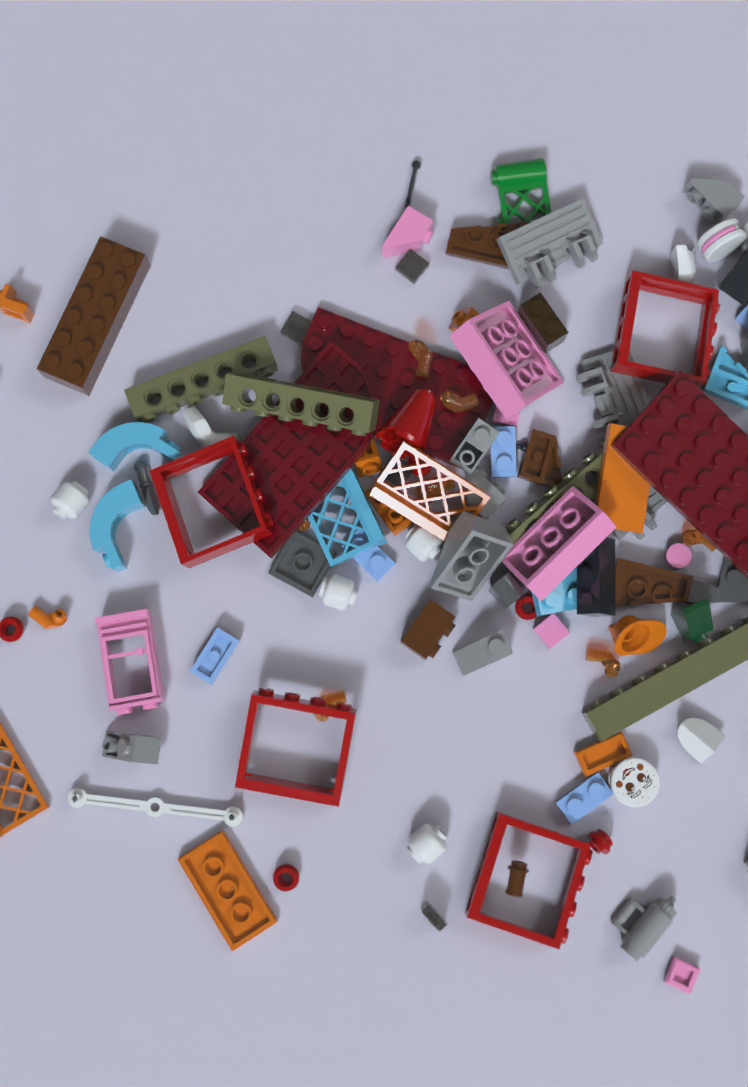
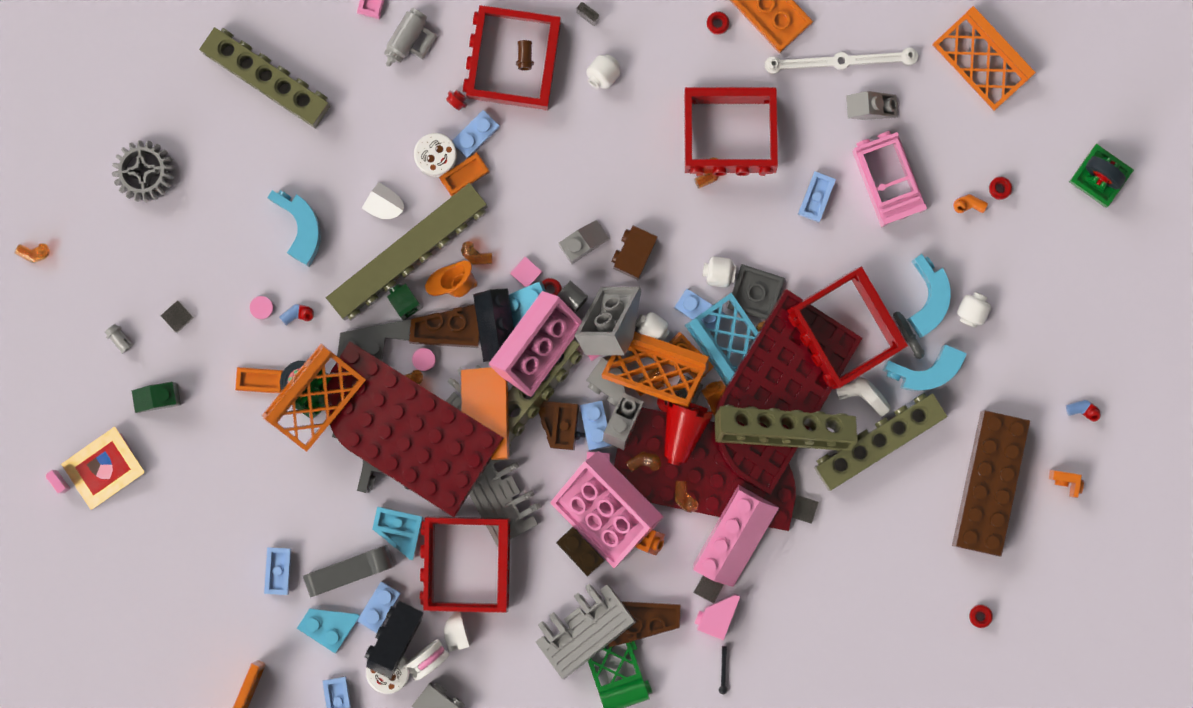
camera: 170 degrees right, 5 degrees up
(136, 182) = (987, 616): none -> red plate
(377, 308) = (735, 537): none -> bright pink slope

